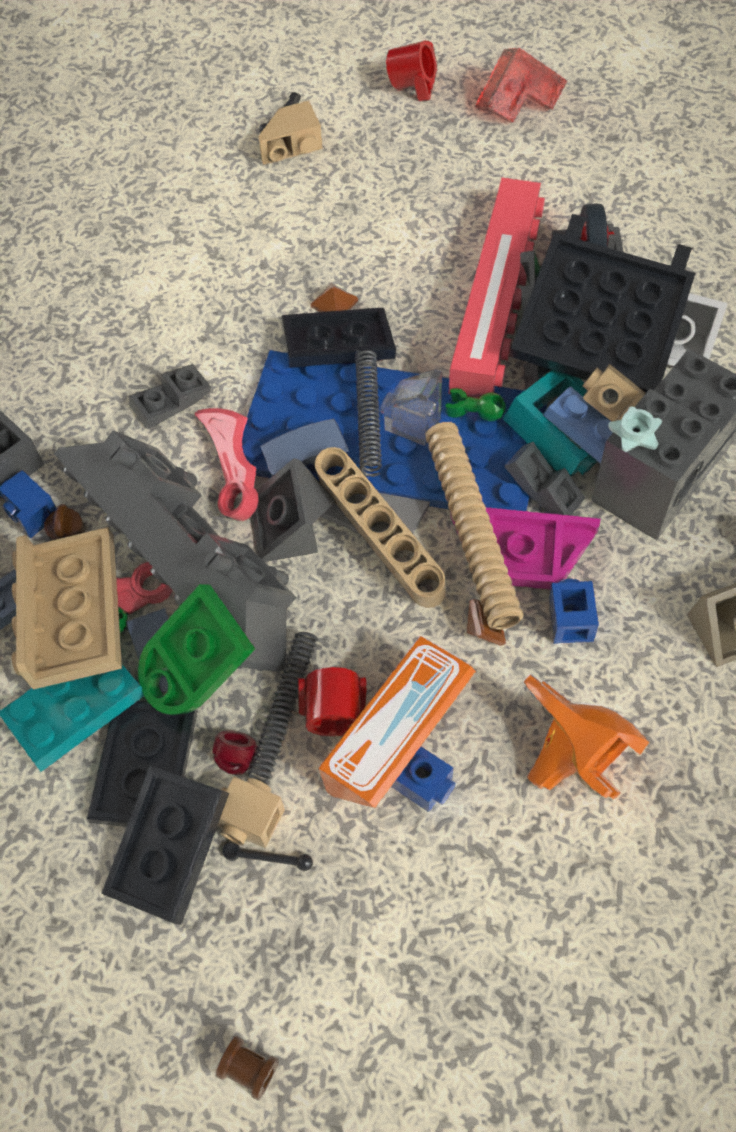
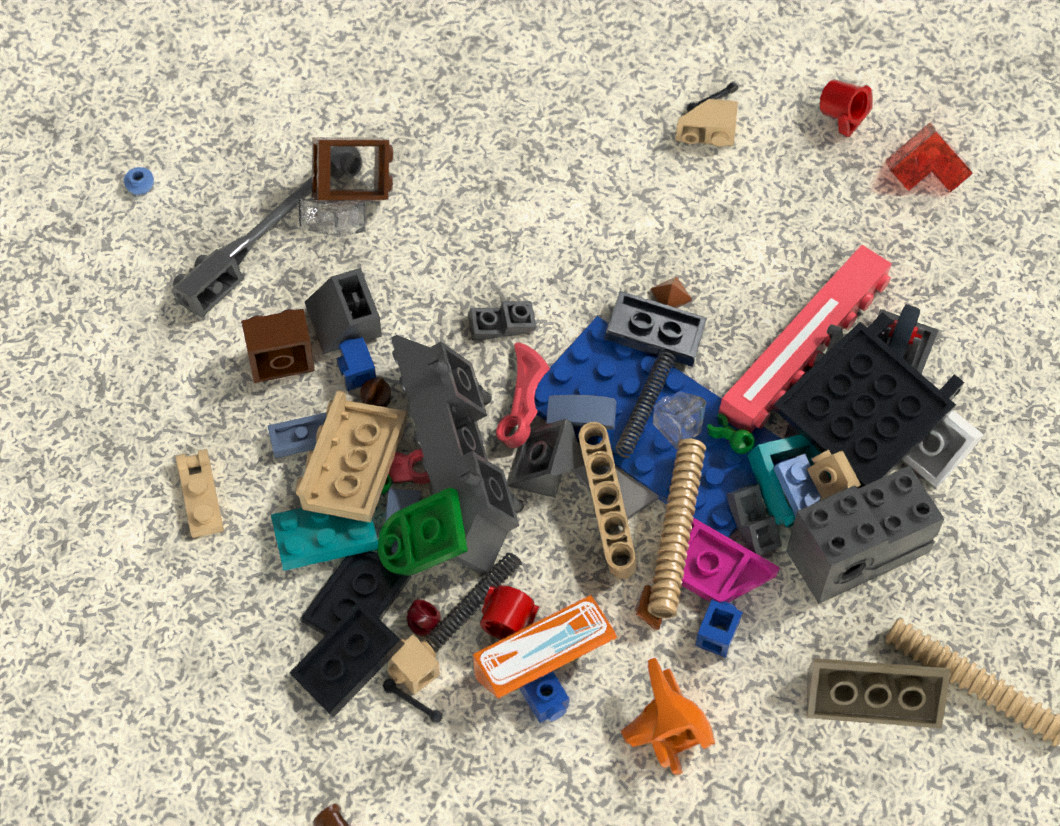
camera: 20 degrees right, 0 degrees up
(636, 419) = (824, 504): light aqua plate -> none

